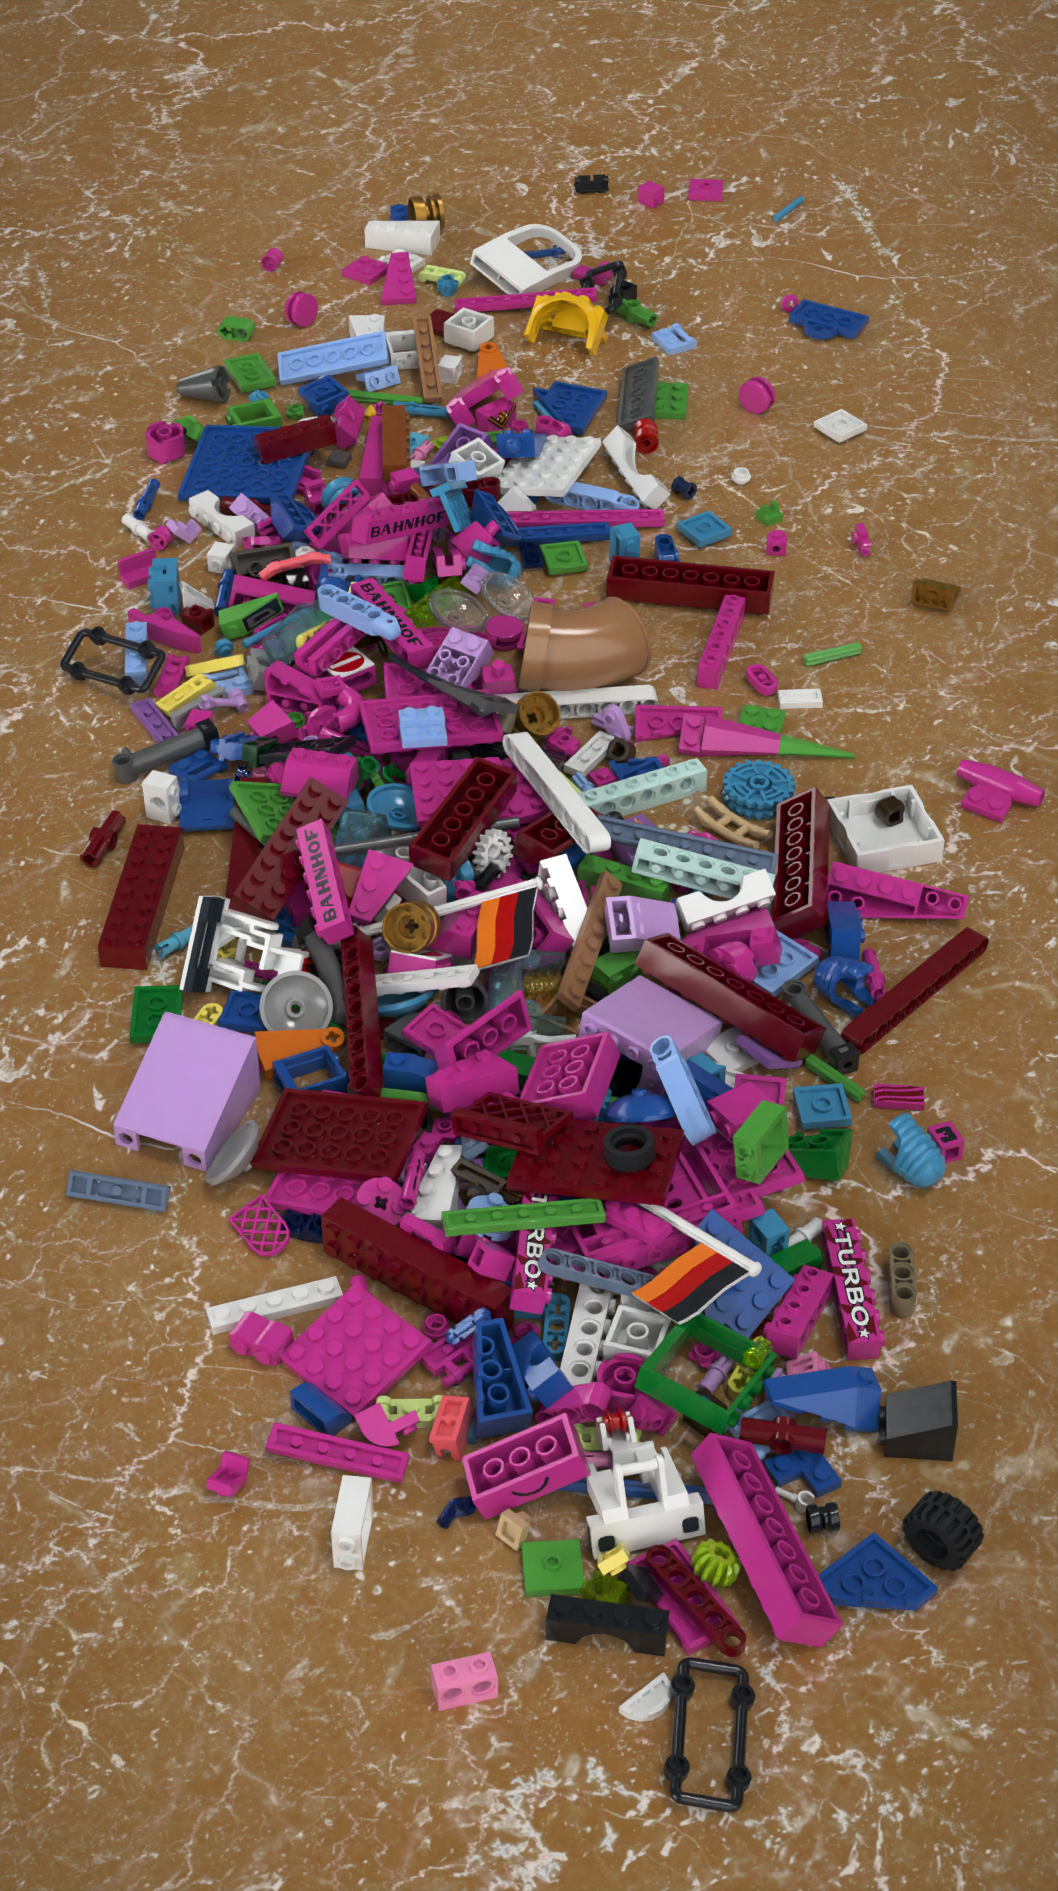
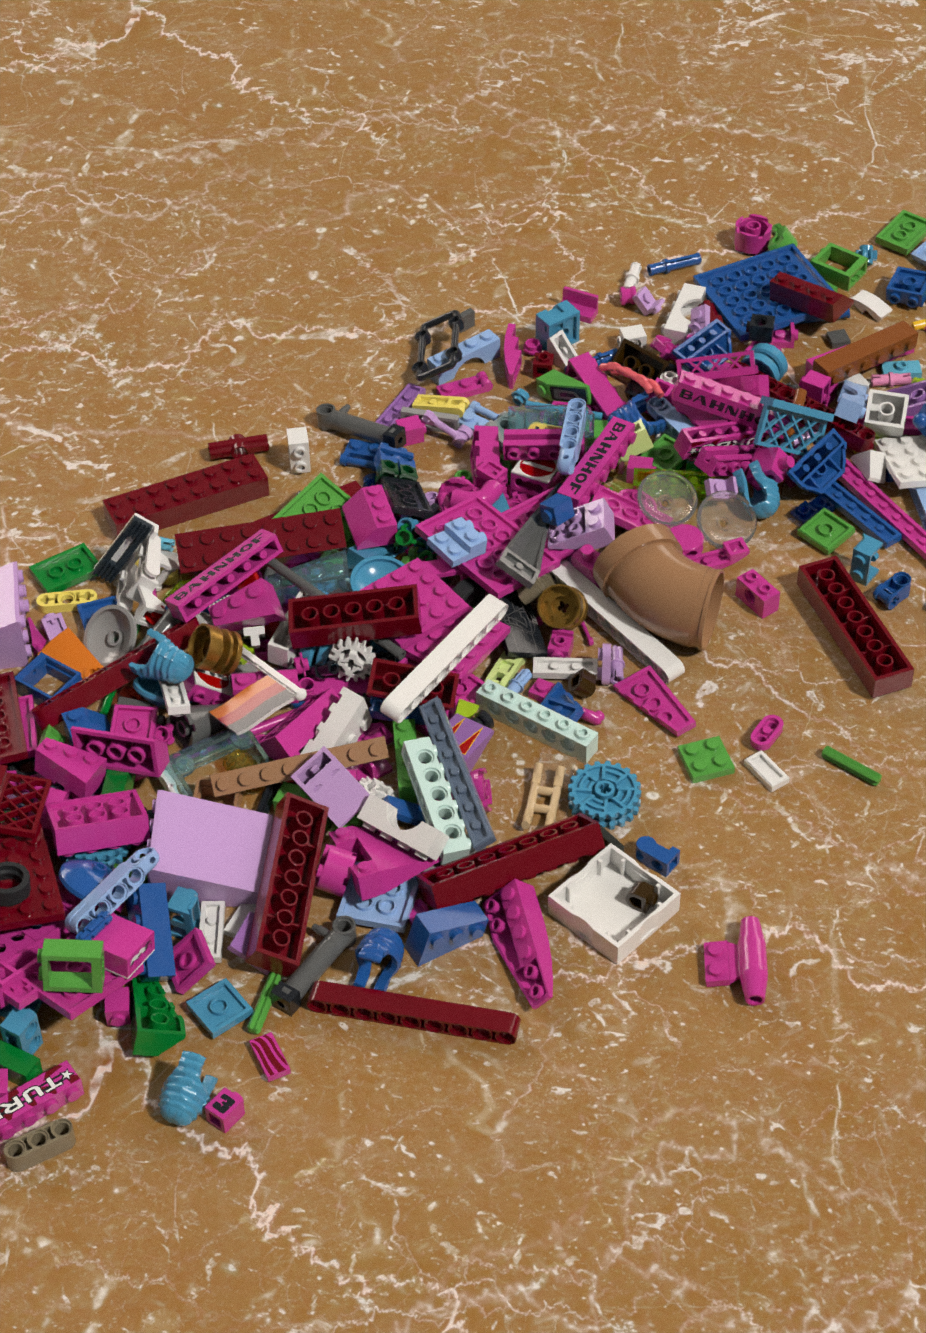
camera: 60 degrees right, 5 degrees up
(85, 644) = (469, 319): none -> dark grey tile
(206, 385) = (855, 219): dark grey cone -> none
(206, 804) = (325, 464): blue door -> none
(214, 665) = (487, 401): light yellow beam -> none
(272, 723) = (438, 467): dark pink torso -> none
(295, 411) = (878, 283): bright green plate -> none
(311, 475) = (761, 328): none -> black brick
(348, 422) = (868, 320): dark pink arch -> none
(407, 960) = (166, 662): none -> dark azure hair
(438, 658) = (557, 509): none -> blue brick
(721, 642) = (793, 681): dark pink brick -> none
(721, 737) = (653, 737): dark pink plate -> none
(723, 1114) = (95, 926): none -> blue axle
(808, 1231) = (54, 1057): white pin -> none
(849, 786) = (657, 856): none -> blue leg
(875, 980) = (402, 977): dark pink pin -> none

